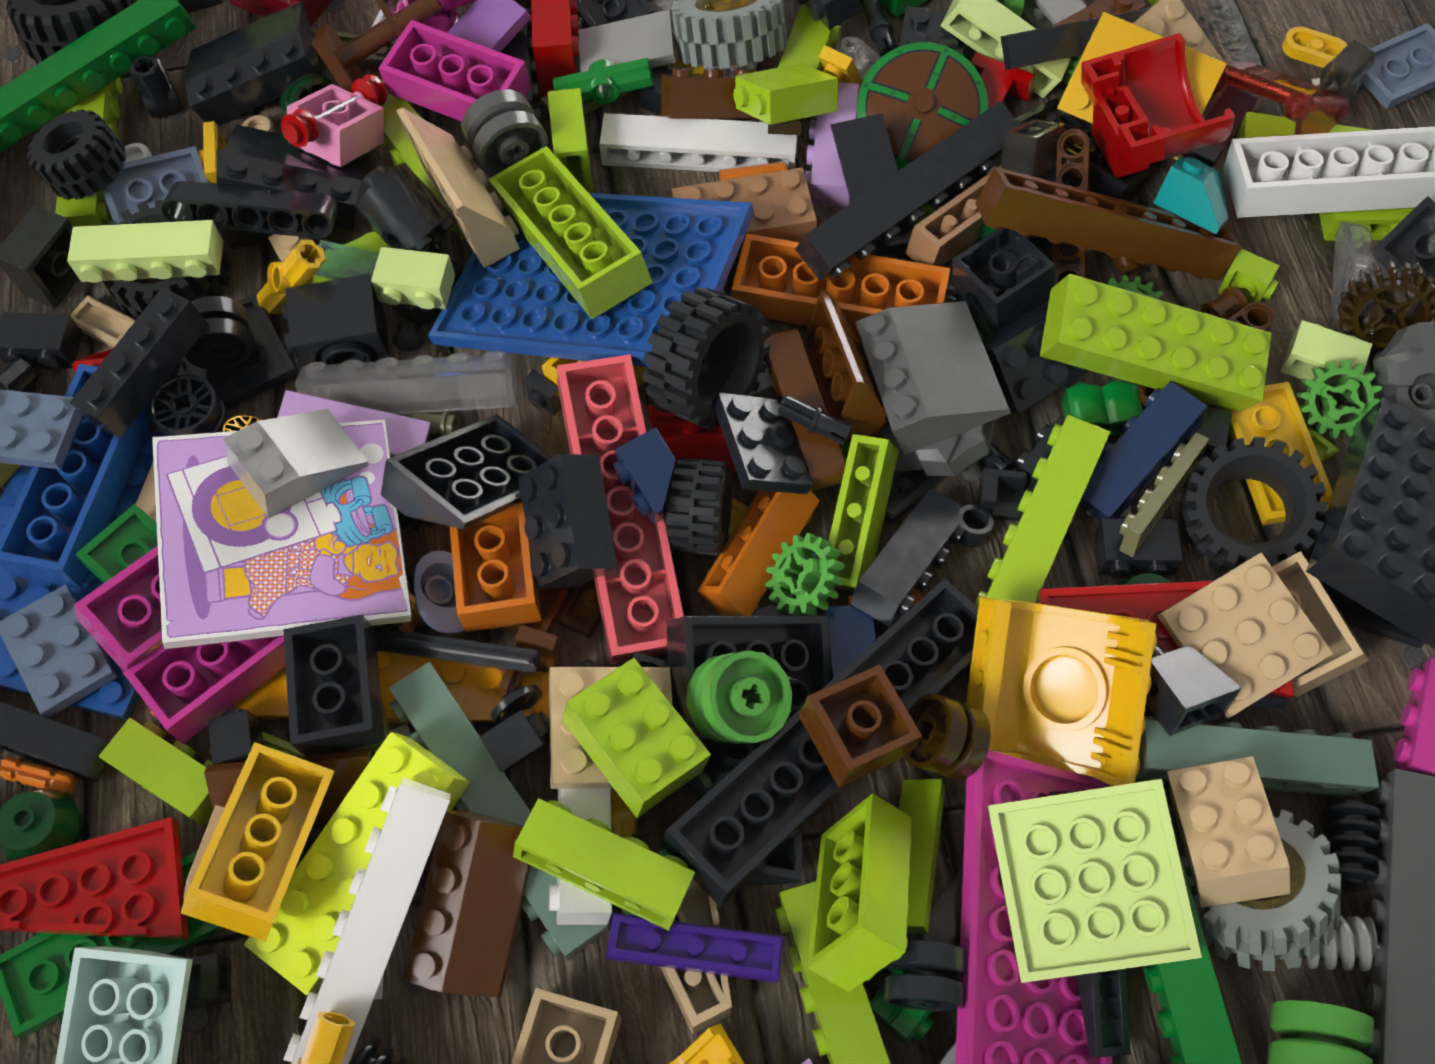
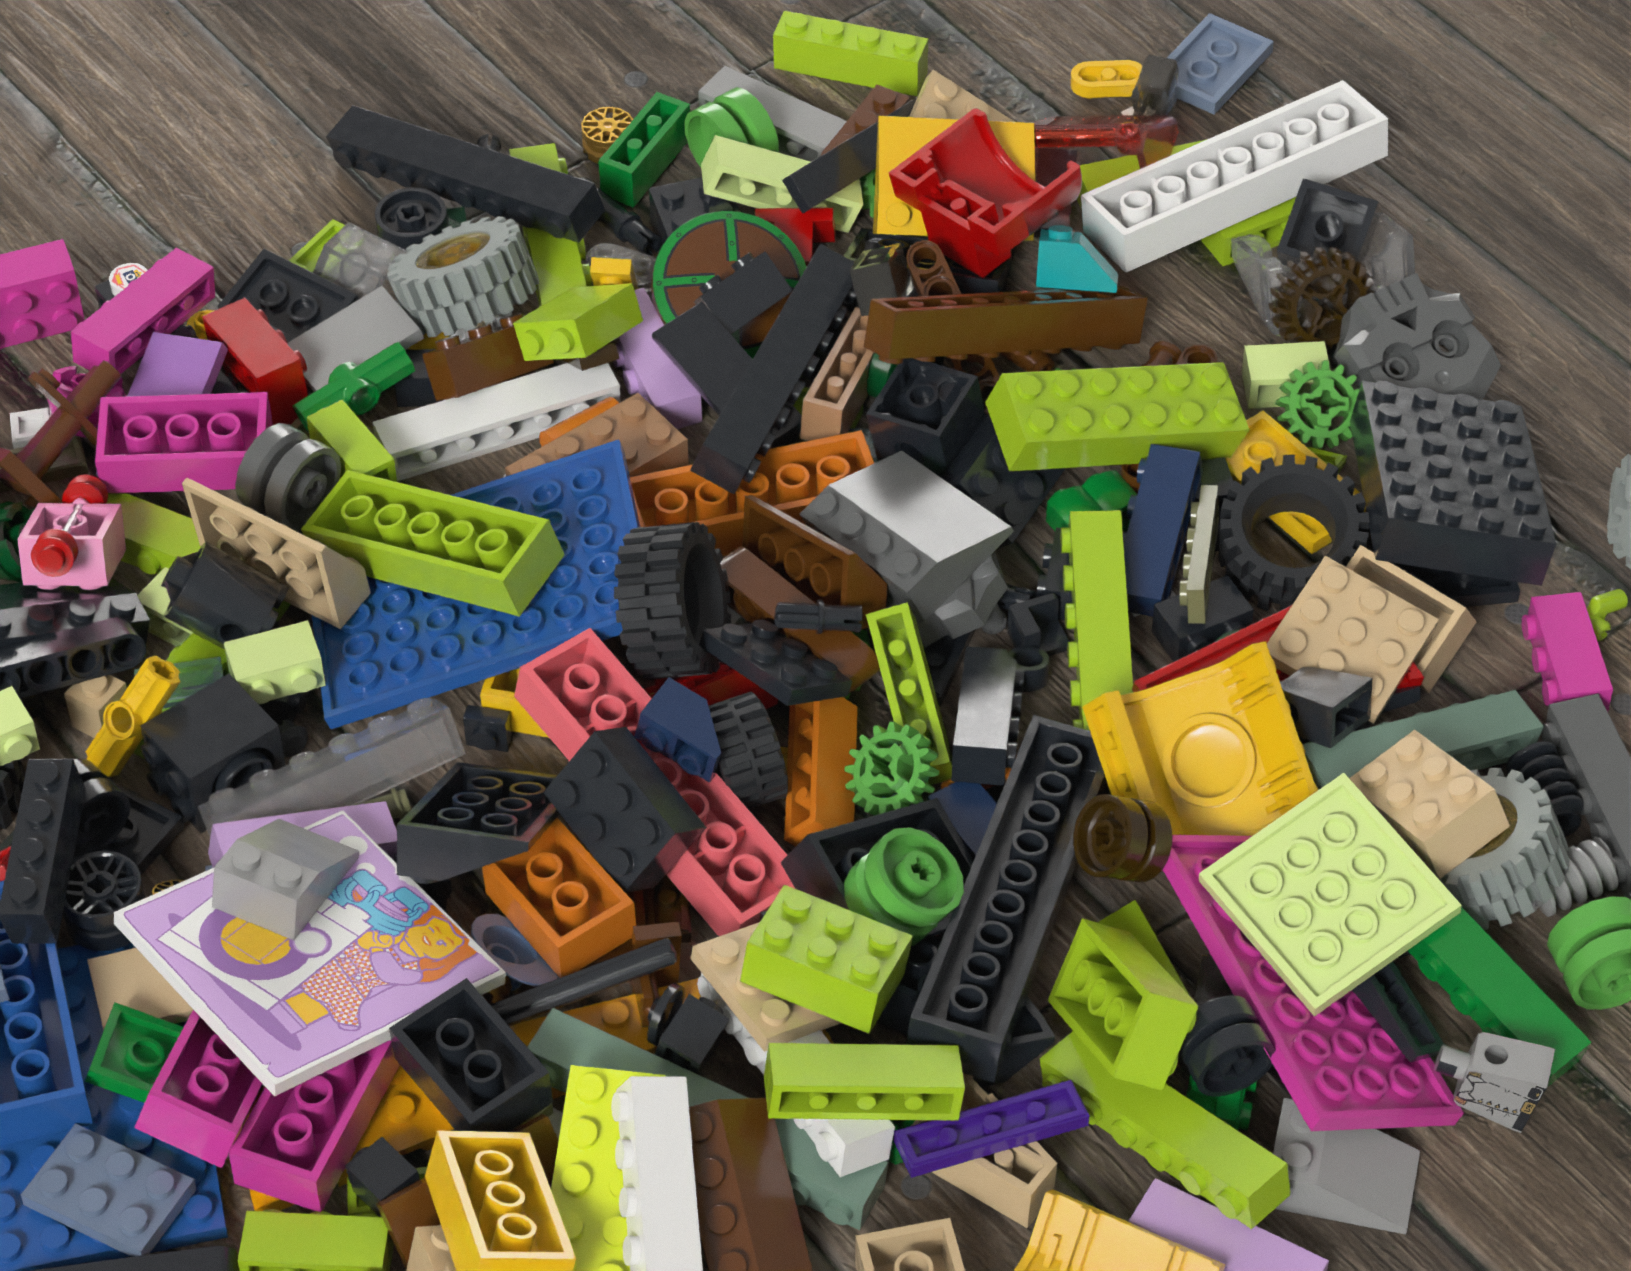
camera: 30 degrees left, 15 degrees down
(859, 725) = (1038, 853): reddish brown brick -> none
(920, 118) = (745, 292): none -> black brick
(1251, 276) = (1170, 323): lime brick -> none

